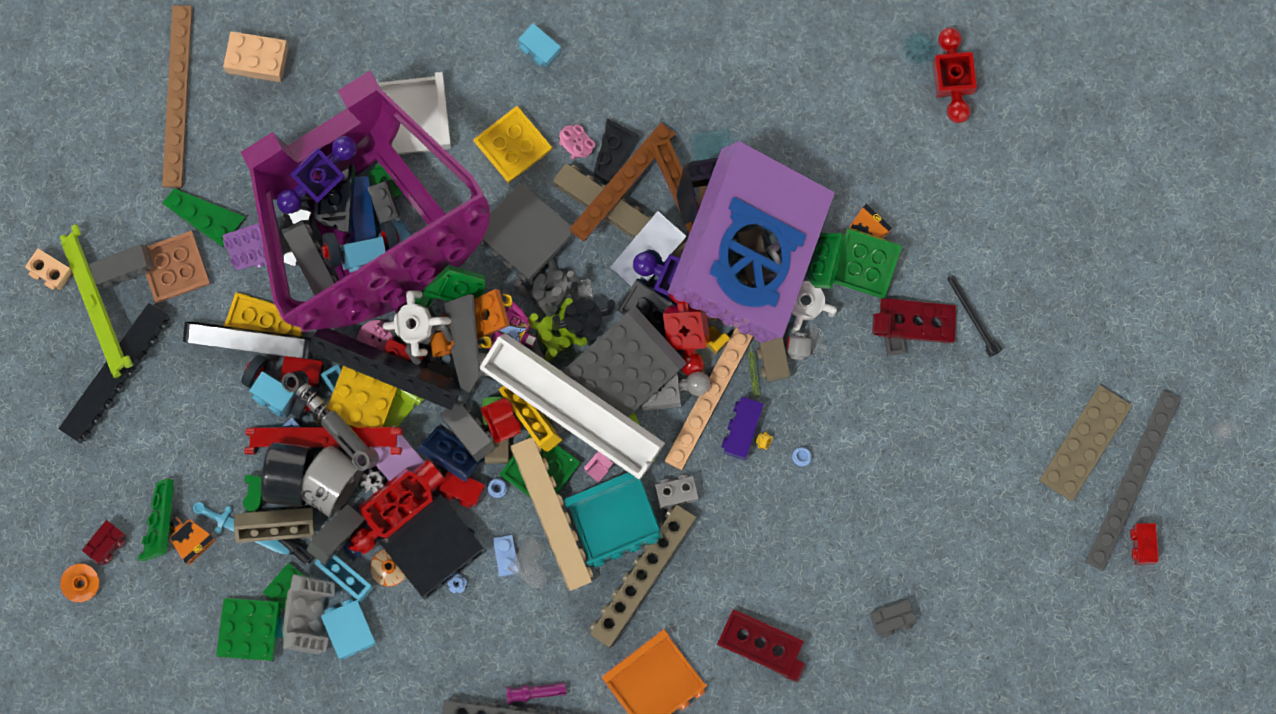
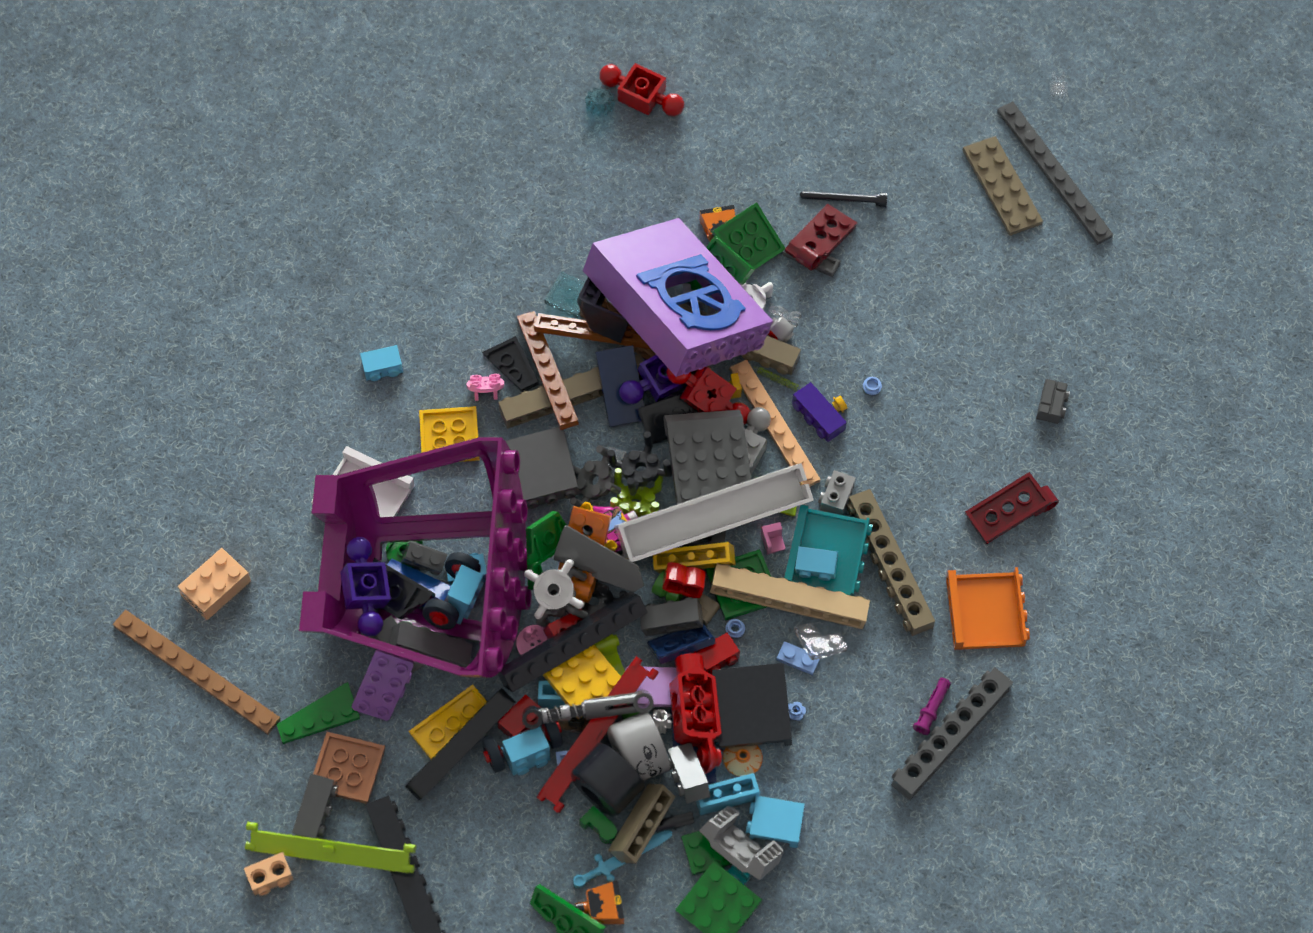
camera: 55 degrees left, 15 degrees down
(594, 517) = (816, 563): none -> medium azure brick
(1144, 543) = (1112, 192): red brick -> none

